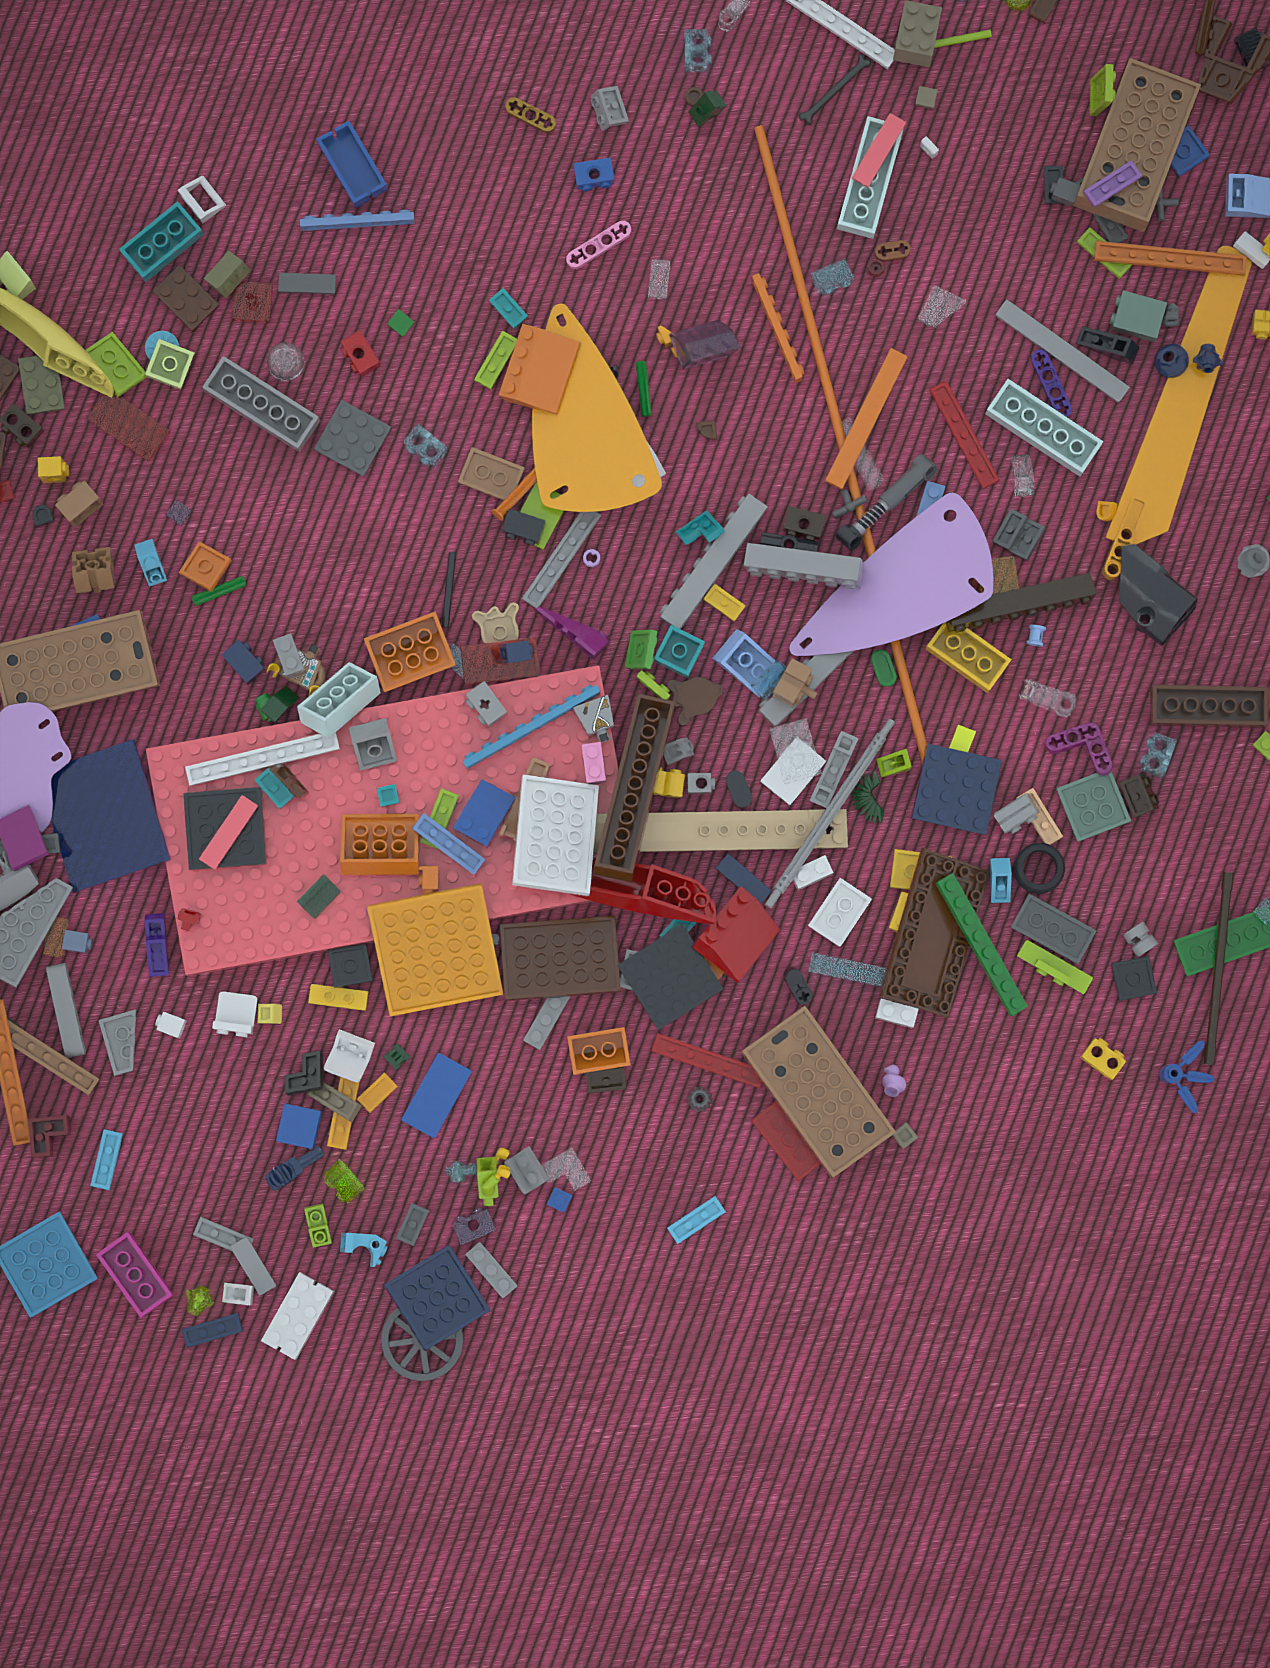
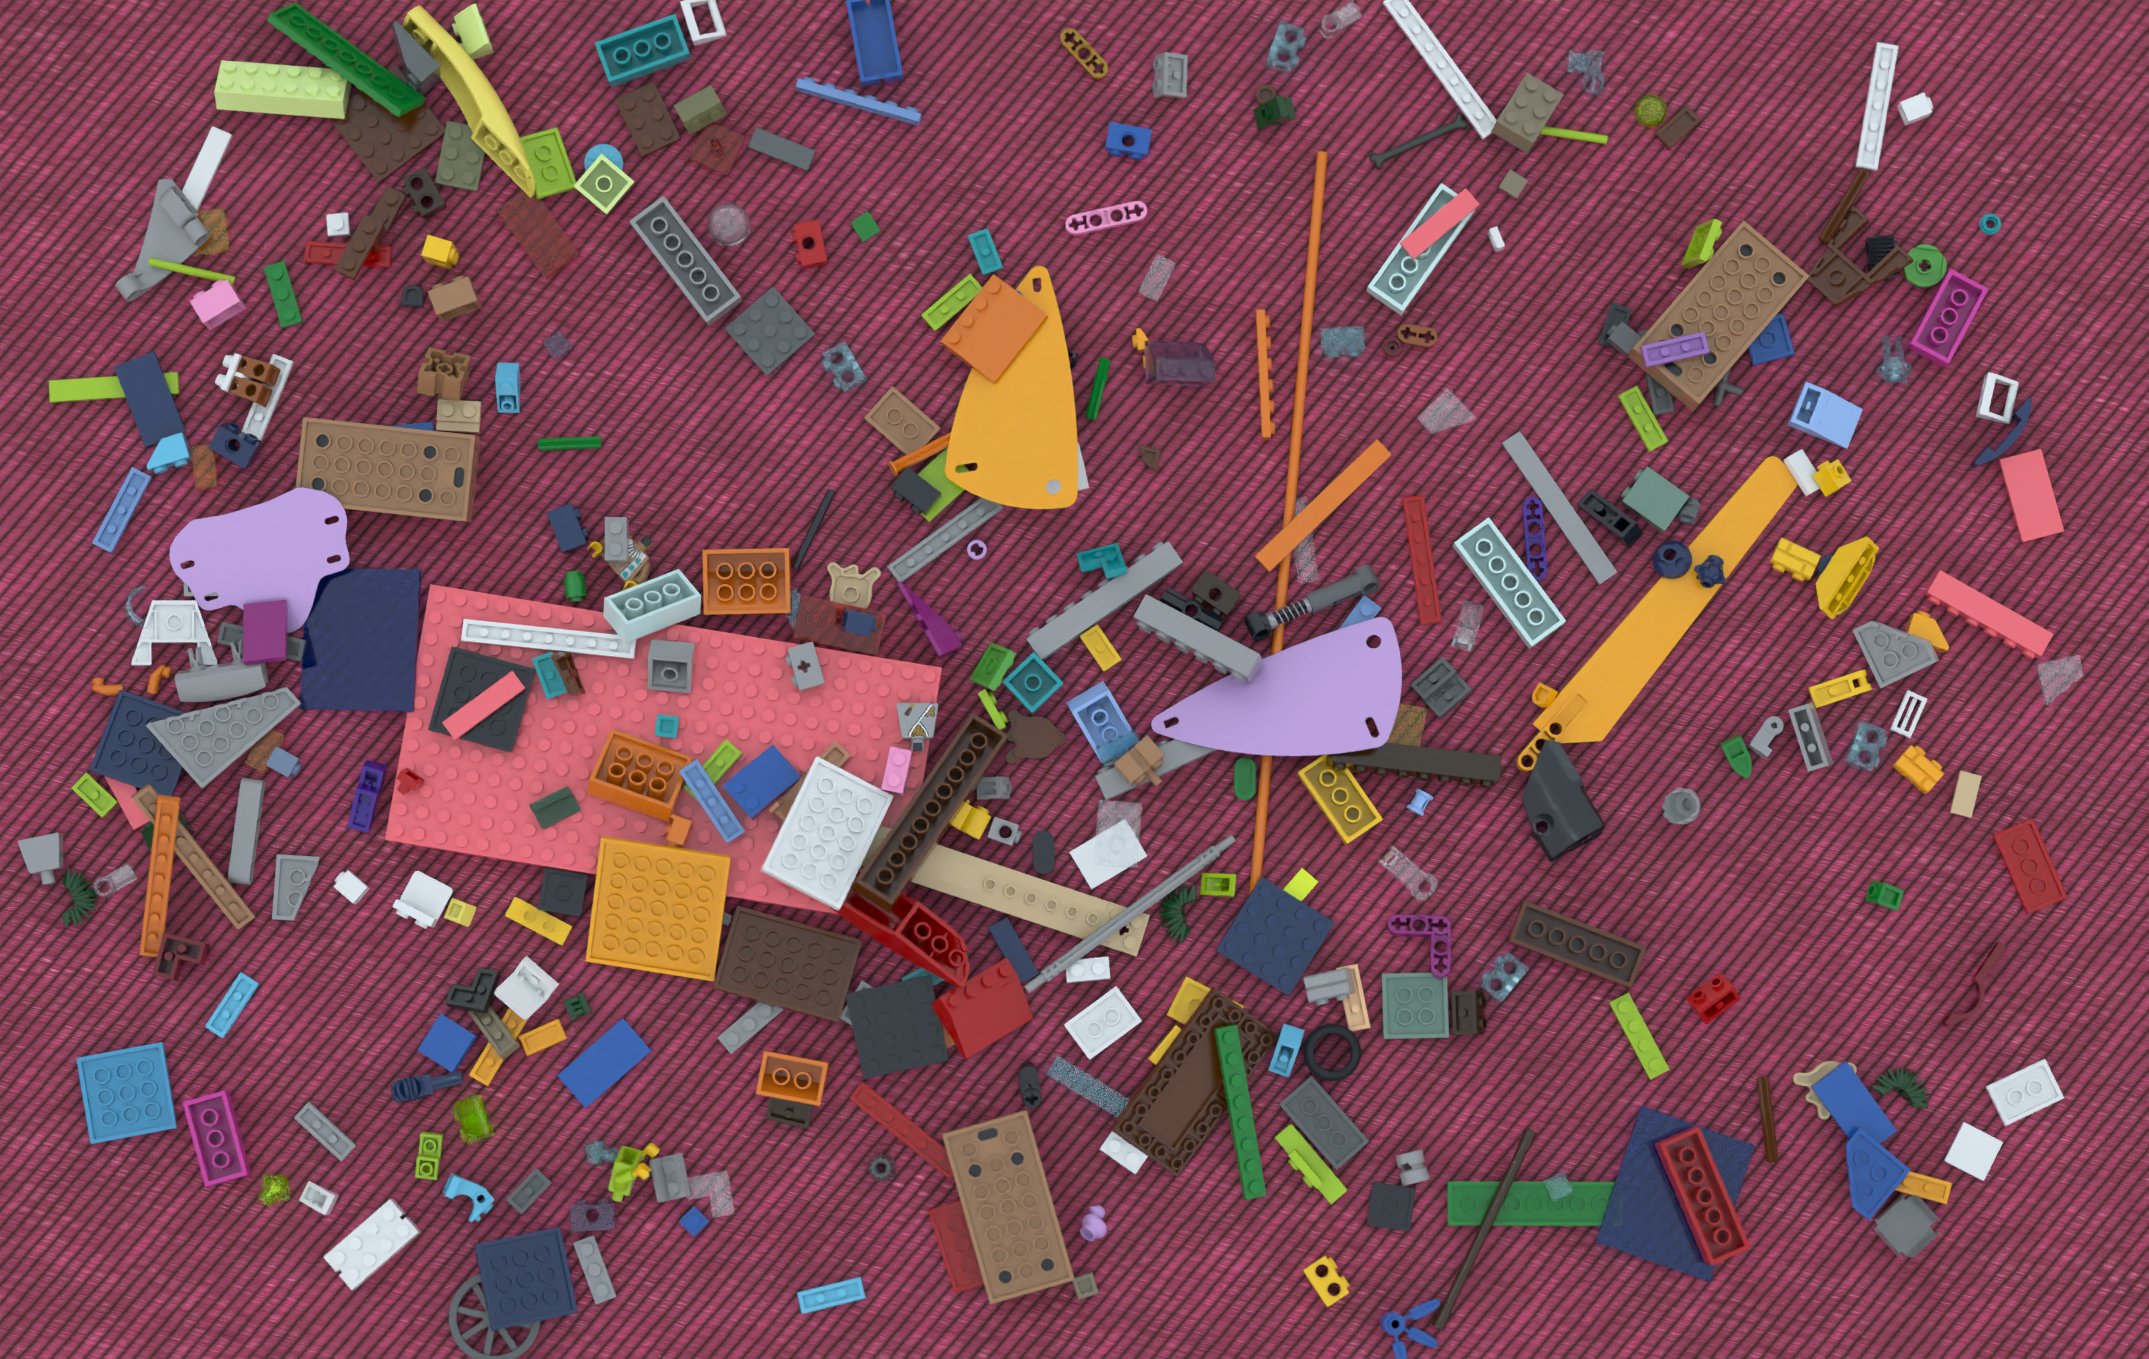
camera: 20 degrees right, 0 degrees up
(117, 600) = (458, 416): none -> tan plate
(205, 566) = (564, 412): orange tile -> none
(212, 1330) = (277, 1226): dark blue tile -> none
(253, 1265) = (345, 1173): light grey tile -> none
(280, 703) = (590, 586): dark green slope -> none
(525, 729) = (835, 708): dark azure plate -> none
(834, 769) = (1152, 868): light grey slope -> none
(849, 504) = (1271, 592): dark grey piece -> none
(1170, 258) = (1711, 449): orange tile -> none

